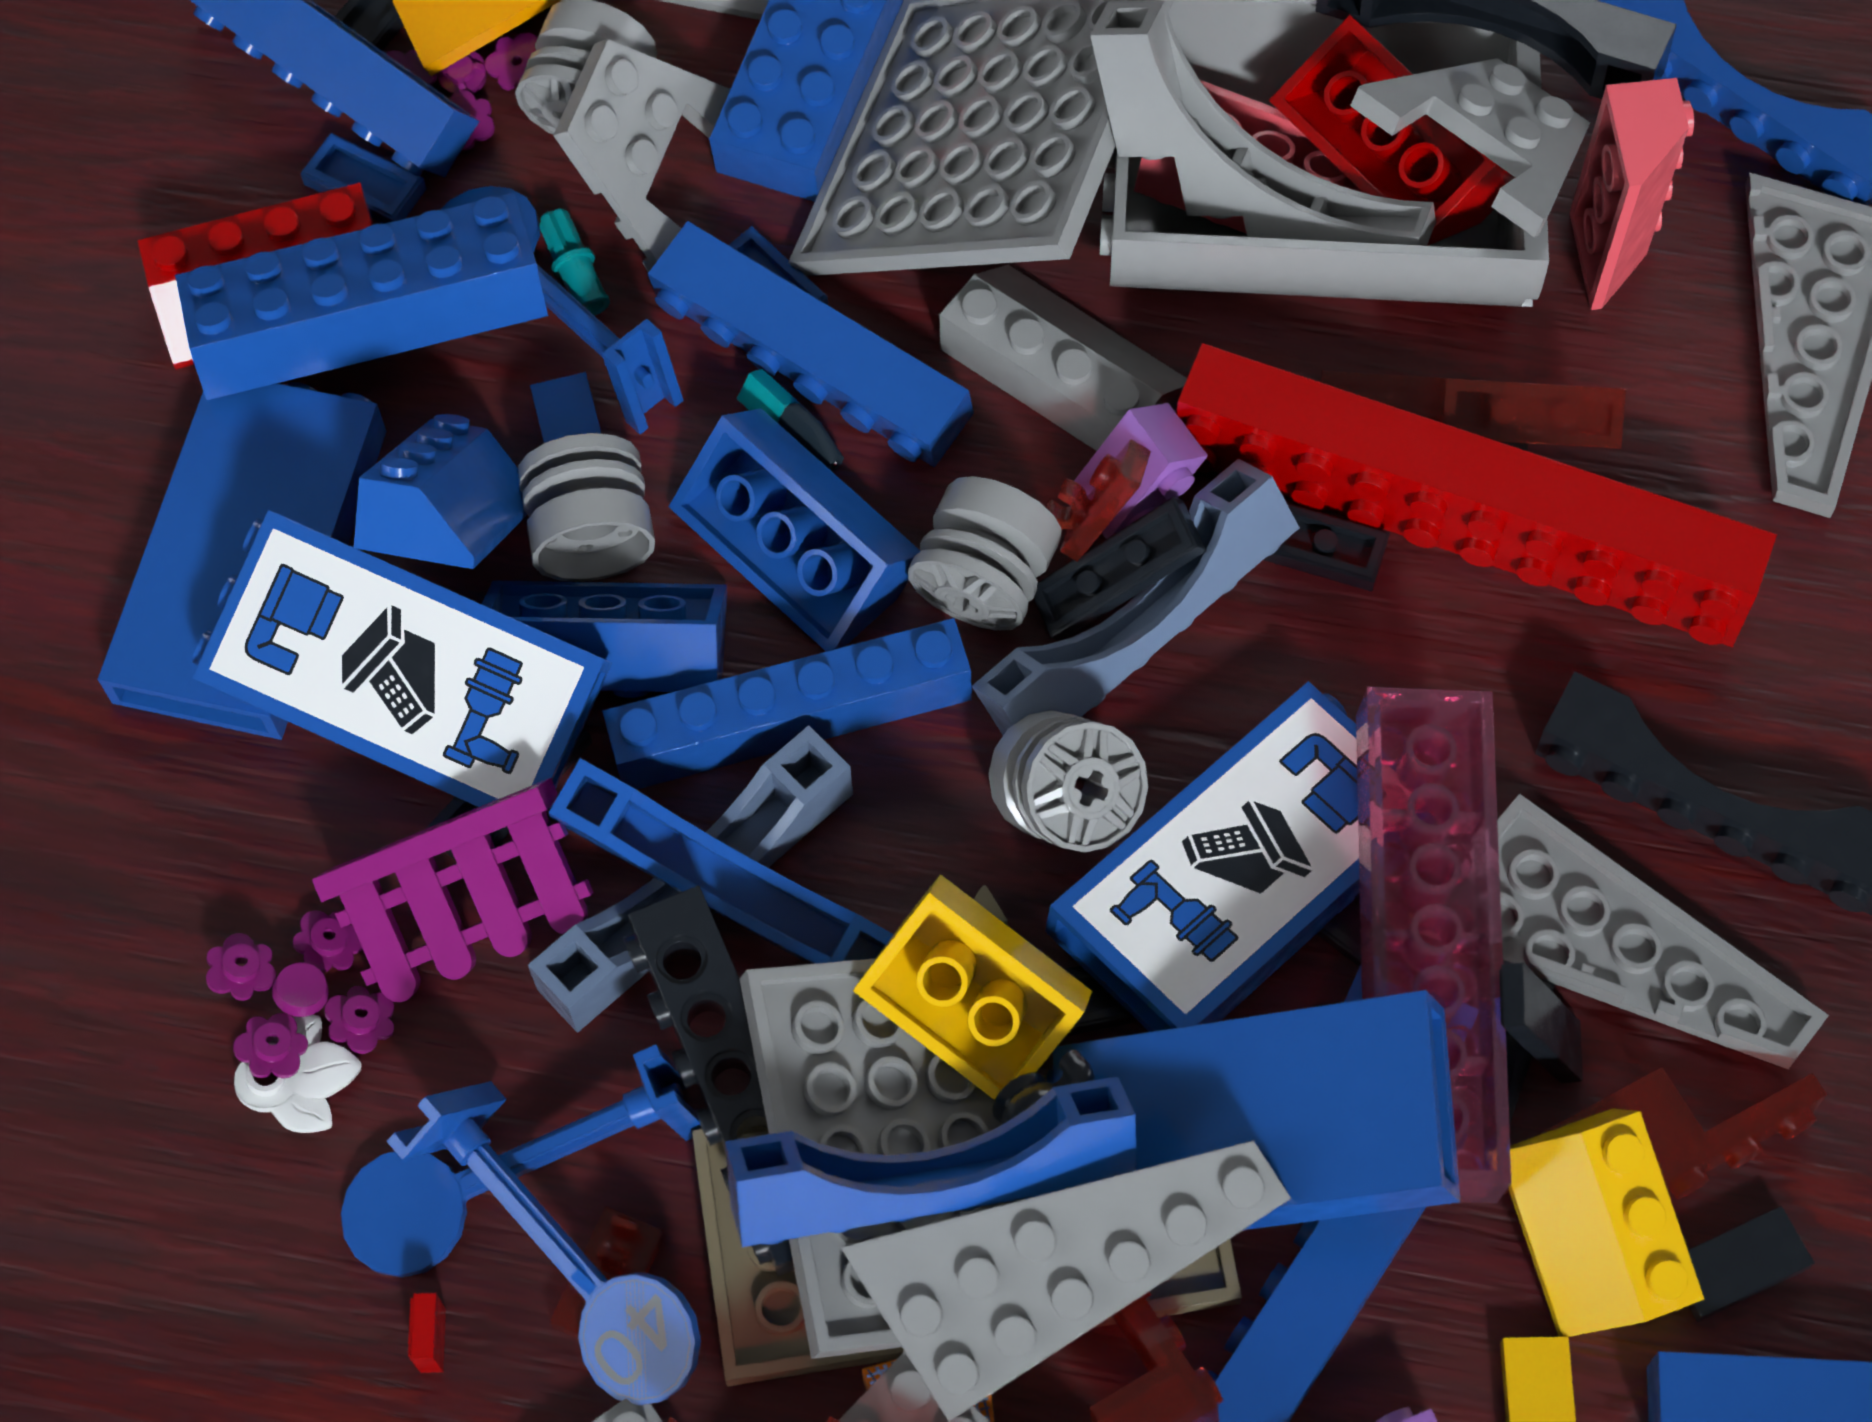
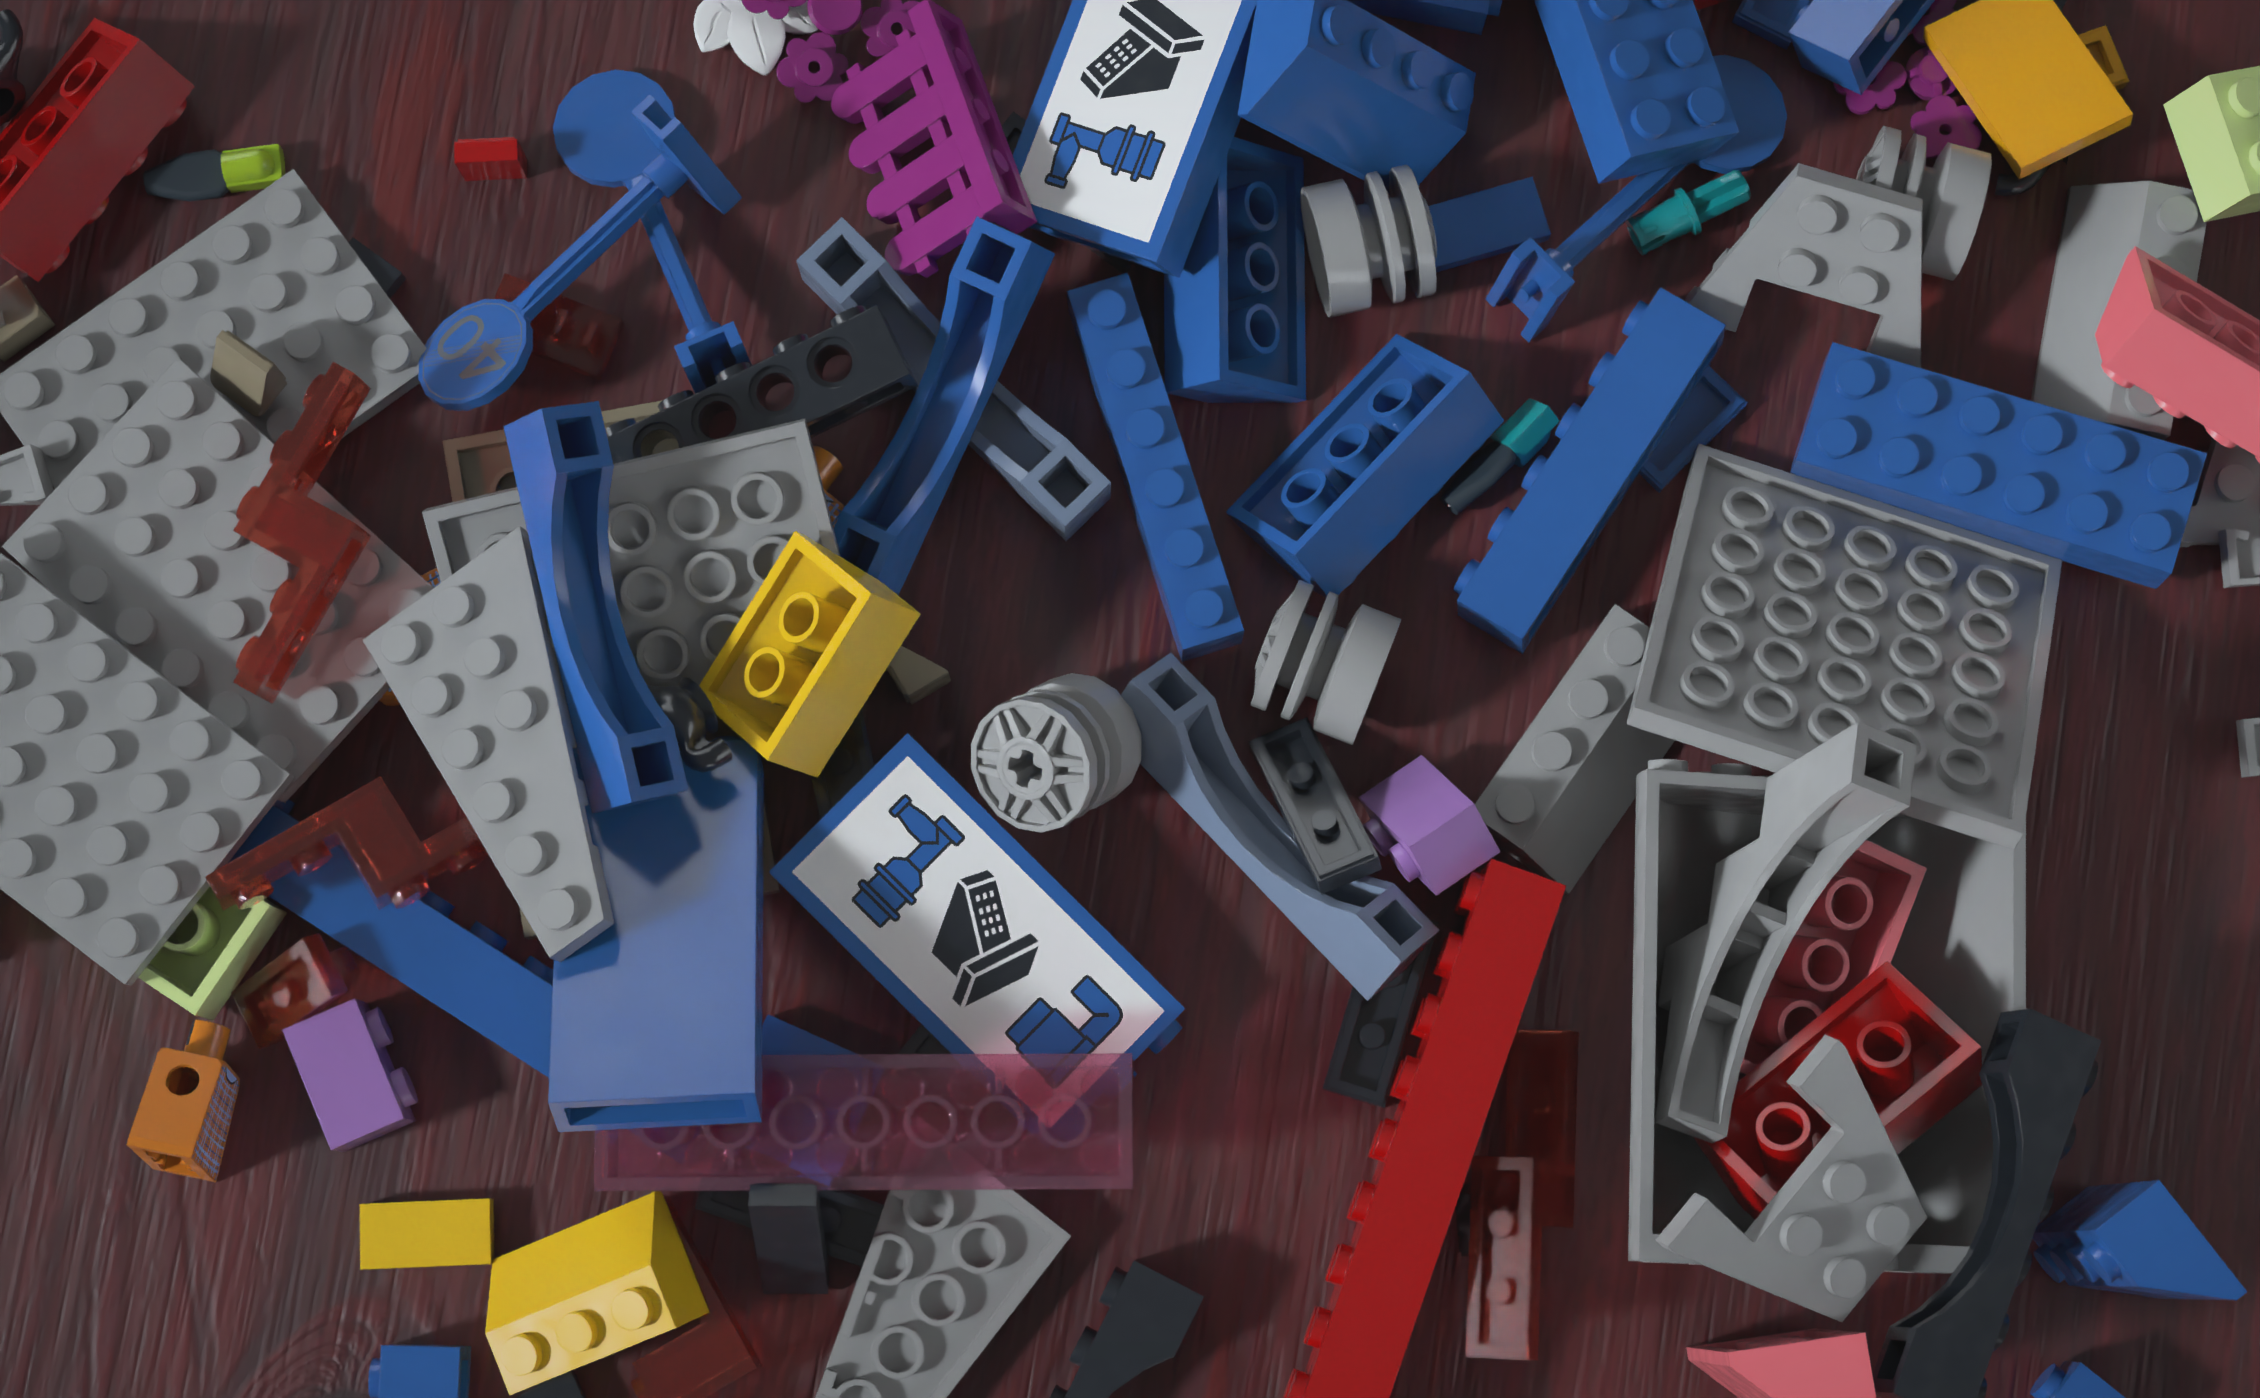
camera: 85 degrees right, 15 degrees up
(1089, 515) = (1376, 780): clear red plate -> none

